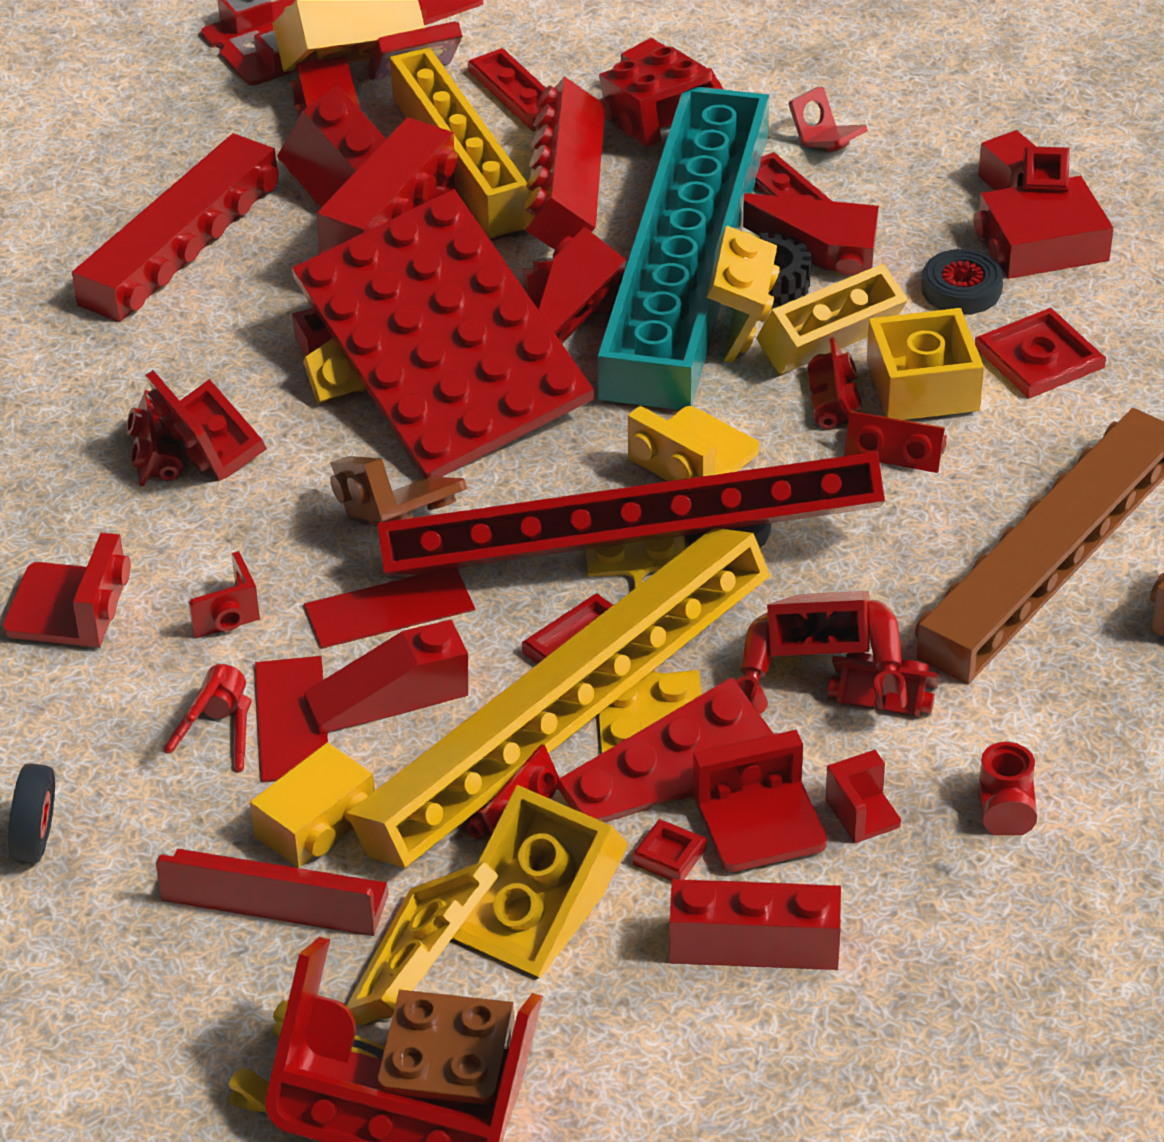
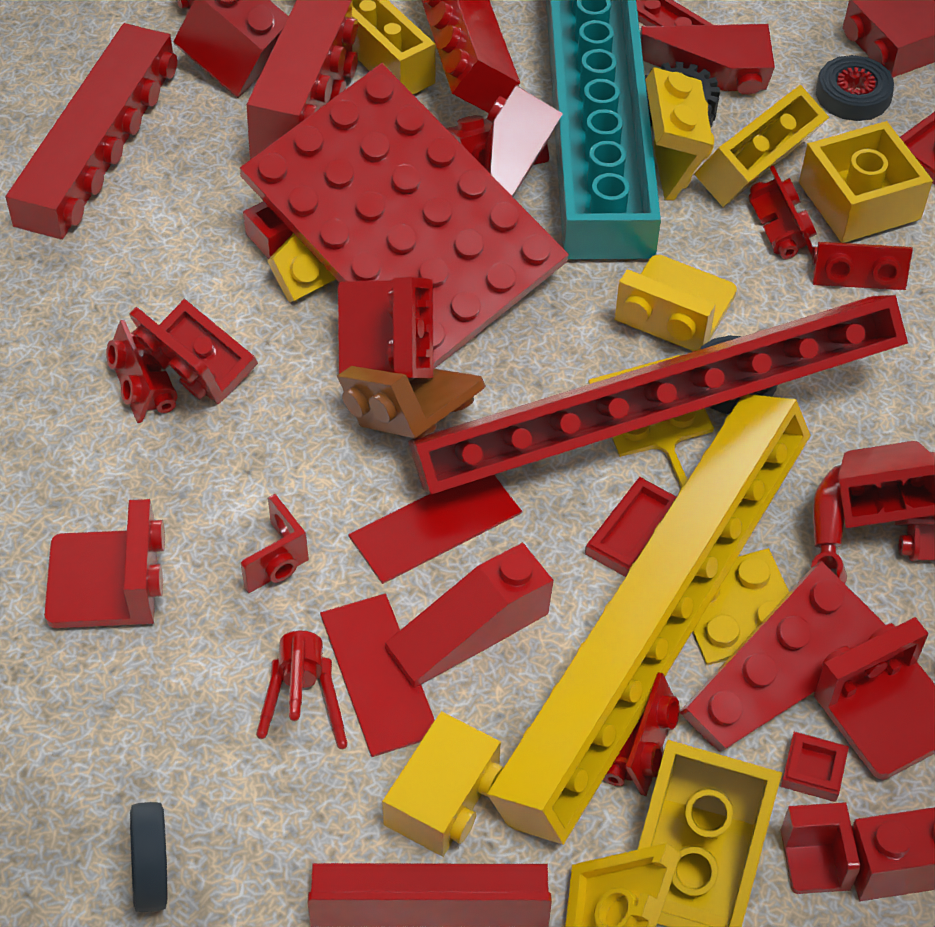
camera: 15 degrees left, 10 degrees up
(395, 424) = (387, 325): none -> red bracket
(641, 908) = (820, 848): none -> red panel

